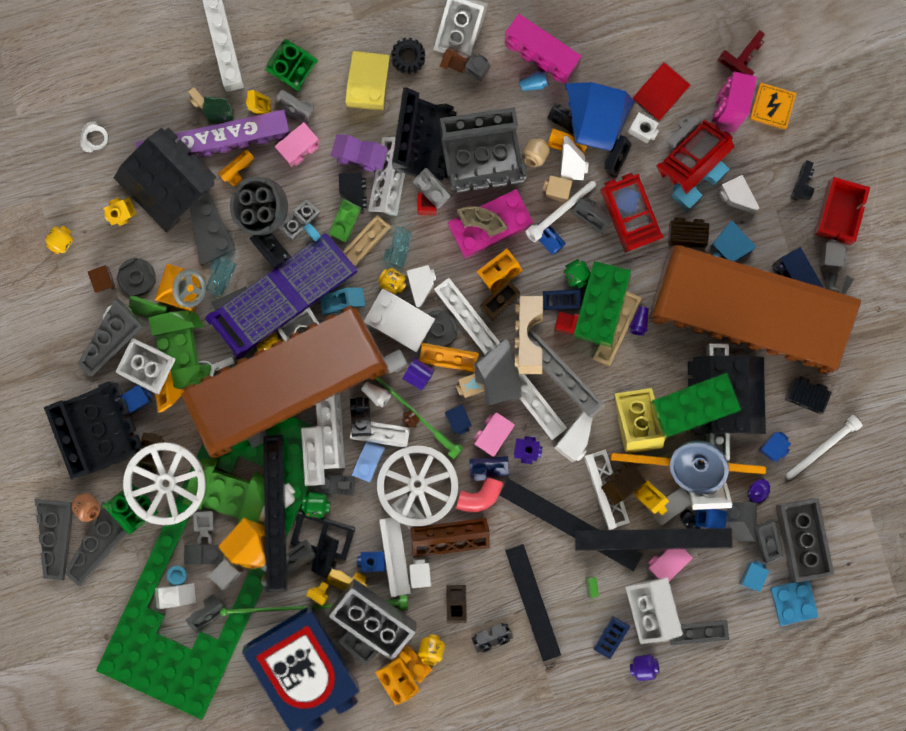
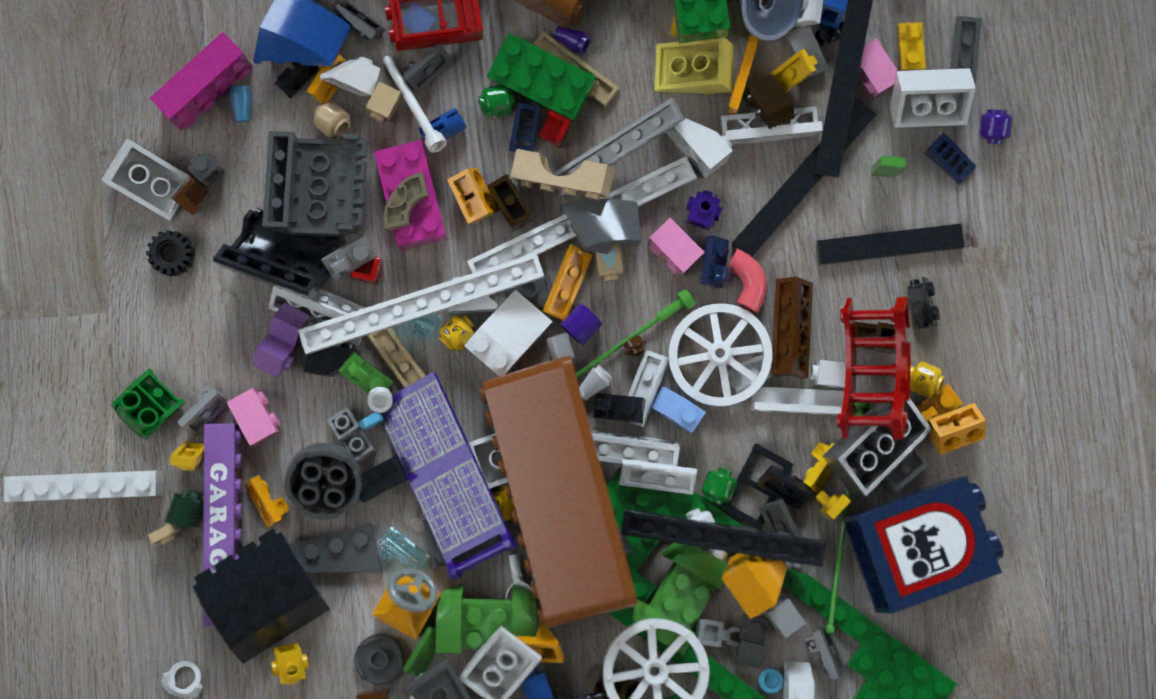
camera: 80 degrees left, 0 degrees up
(329, 234) = (380, 399): none -> white tile
(336, 485) = (698, 454): dark grey hinge -> none
(340, 299) = (467, 399): medium azure arch -> none
(367, 81) = (191, 310): light yellow slope -> none
(371, 561) = (802, 430): blue brick -> none
(407, 249) = (420, 303): none -> white plate
(430, 624) = (900, 370): none -> red fence
(458, 420) = (648, 287): dark blue brick -> none
(694, 589) = (911, 46): none -> yellow hinge

